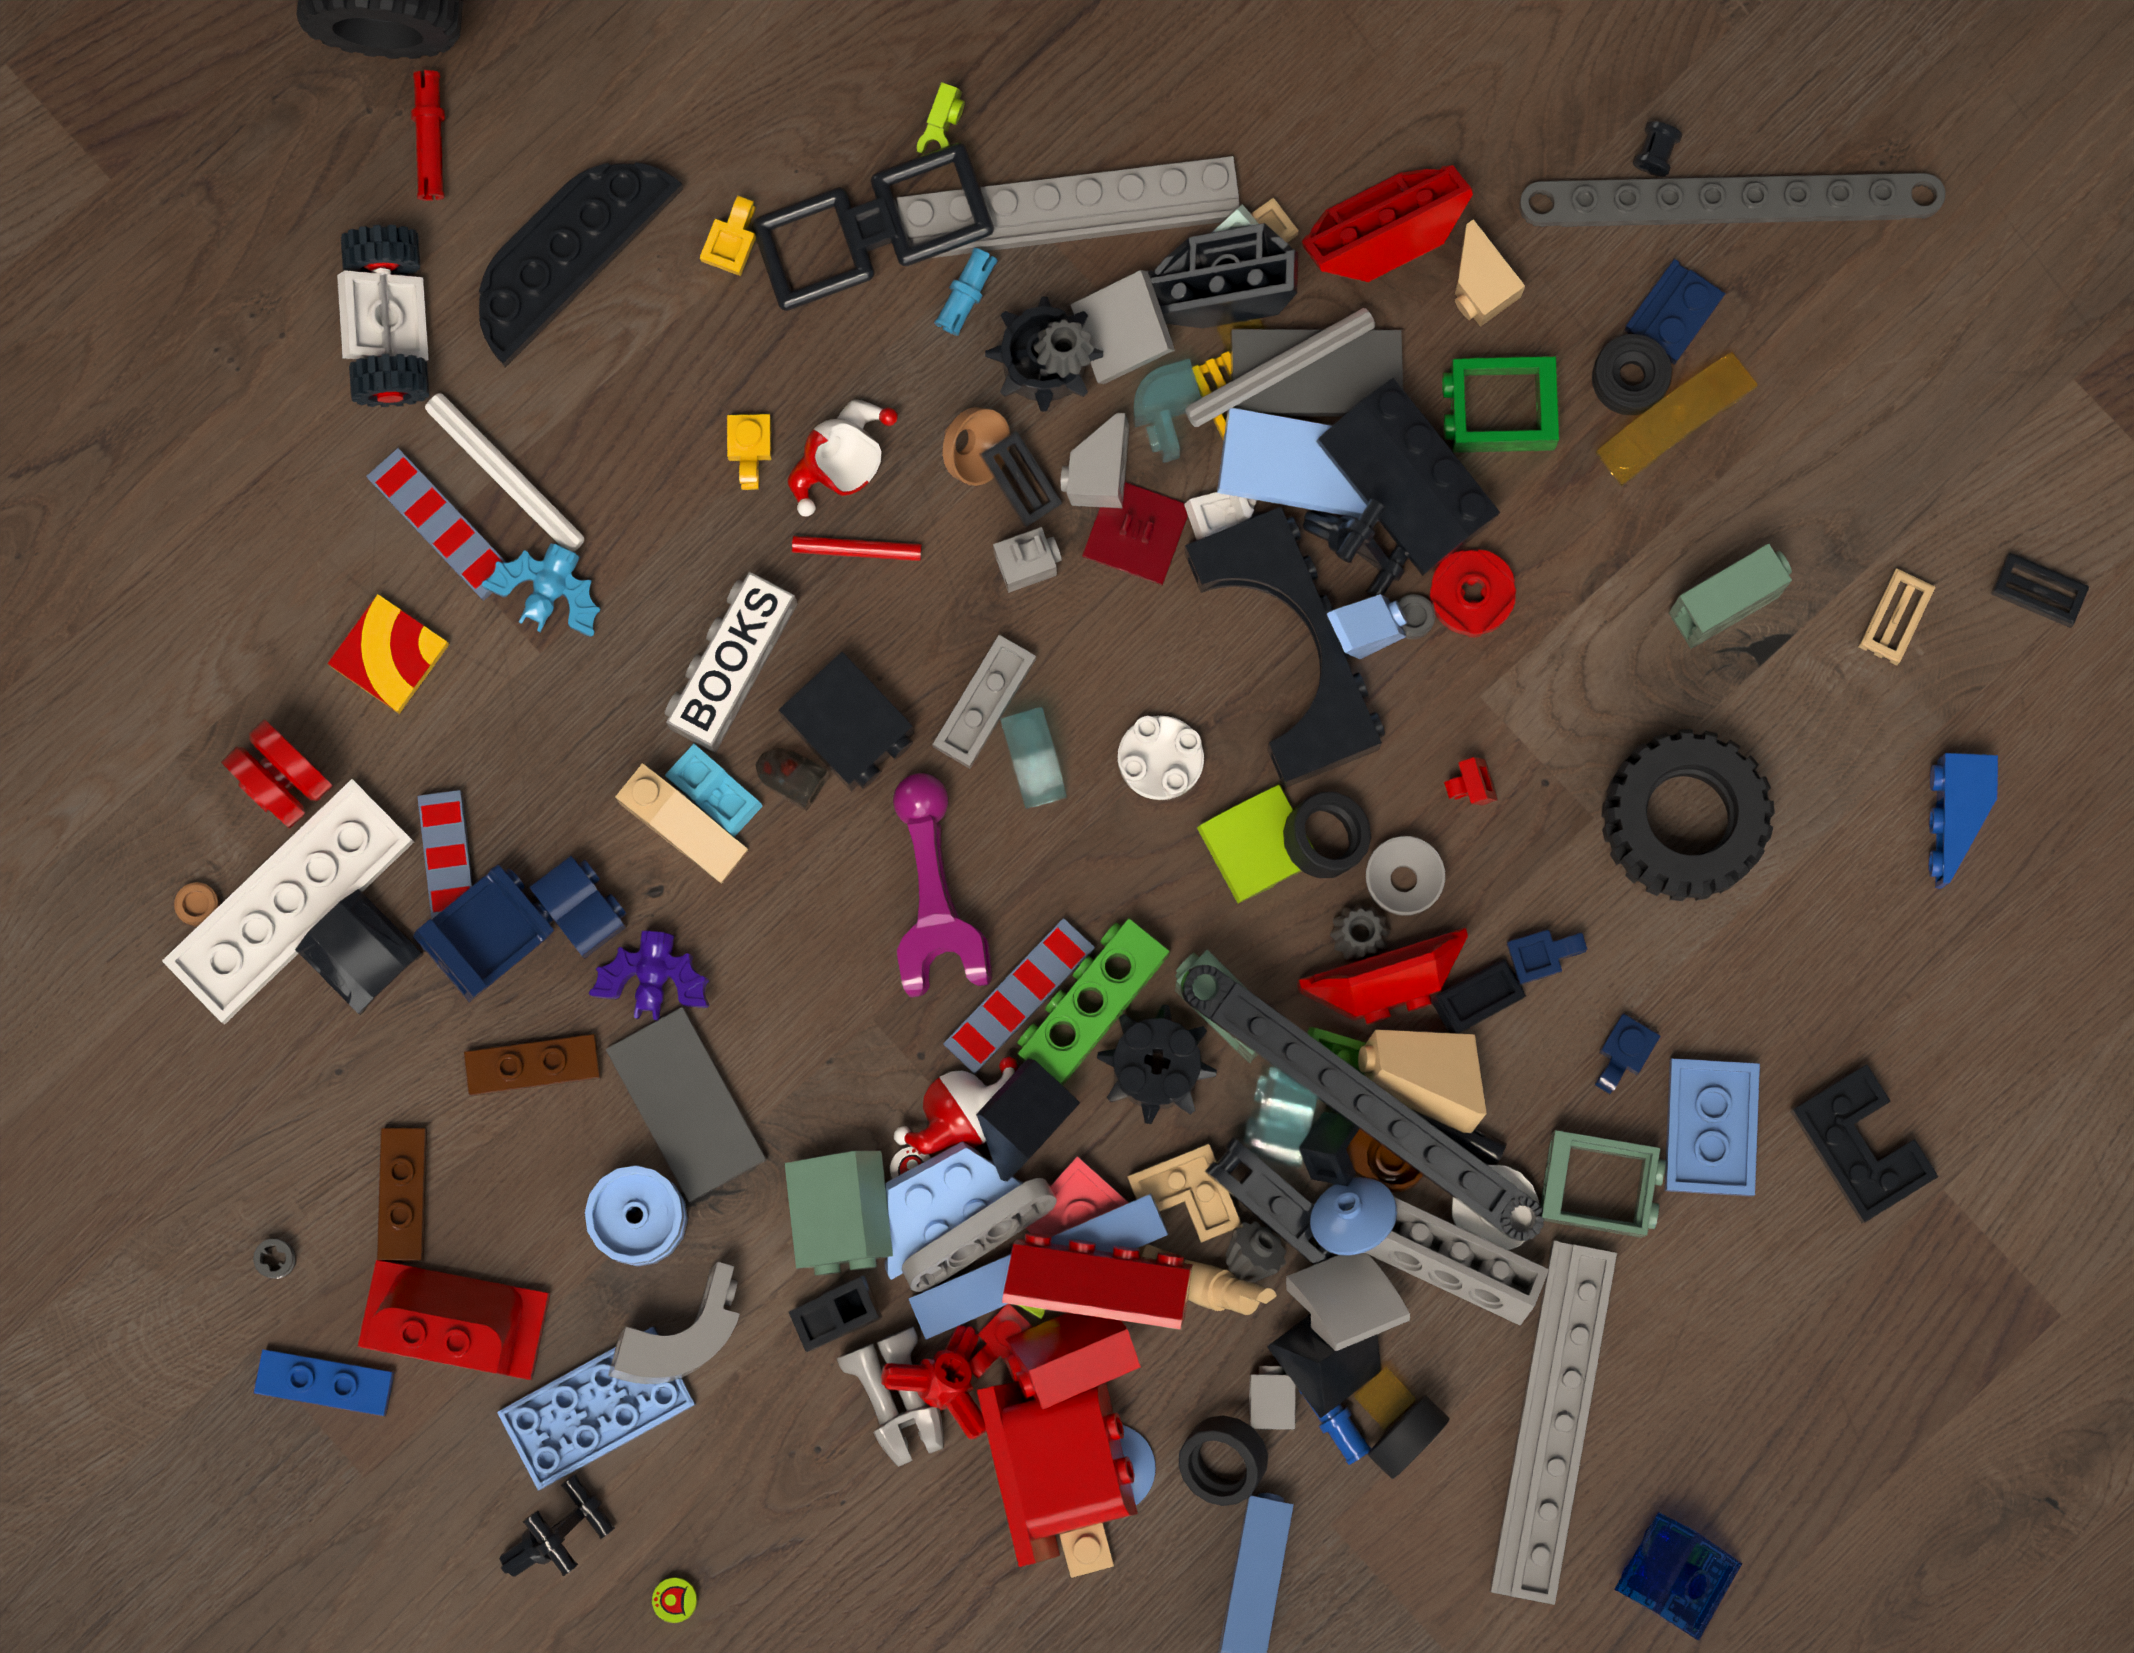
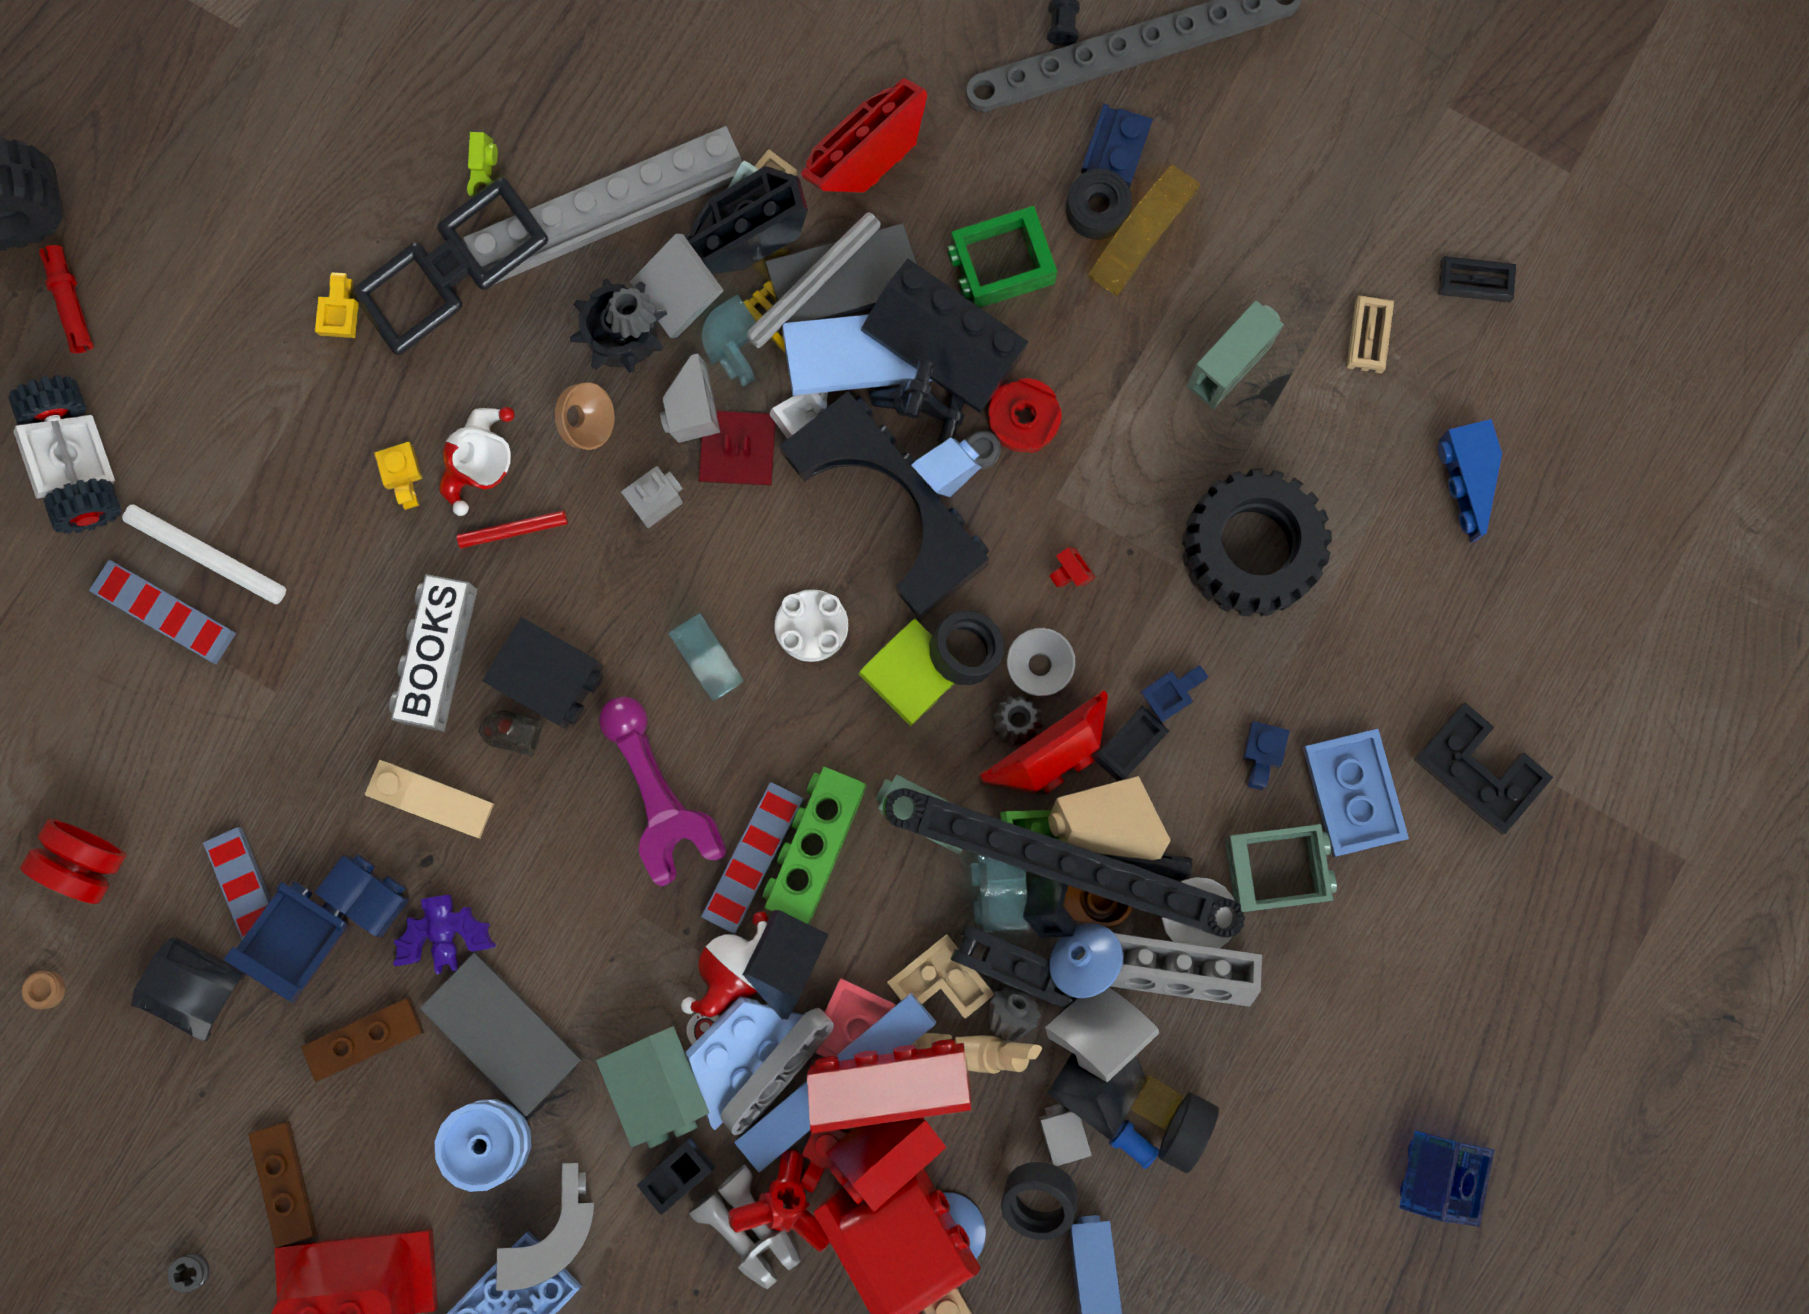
camera: 15 degrees left, 0 degrees up
(273, 910) = (97, 991): white plate -> none
(388, 654) = (147, 731): tile -> none
(550, 581) = (265, 630): dark azure animal -> none
(566, 249) = (204, 358): black plate -> none
(713, 790) = (450, 763): medium azure slope -> none
(965, 291) = (541, 295): dark azure pin -> none
(984, 701) = (652, 623): light grey plate -> none
(1001, 448) = (605, 412): black tile -> none
(1135, 1078) = (869, 898): black brick -> none
(1484, 278) = (957, 162): tan slope -> none
(1553, 1423) = (1303, 1083): light grey plate -> none

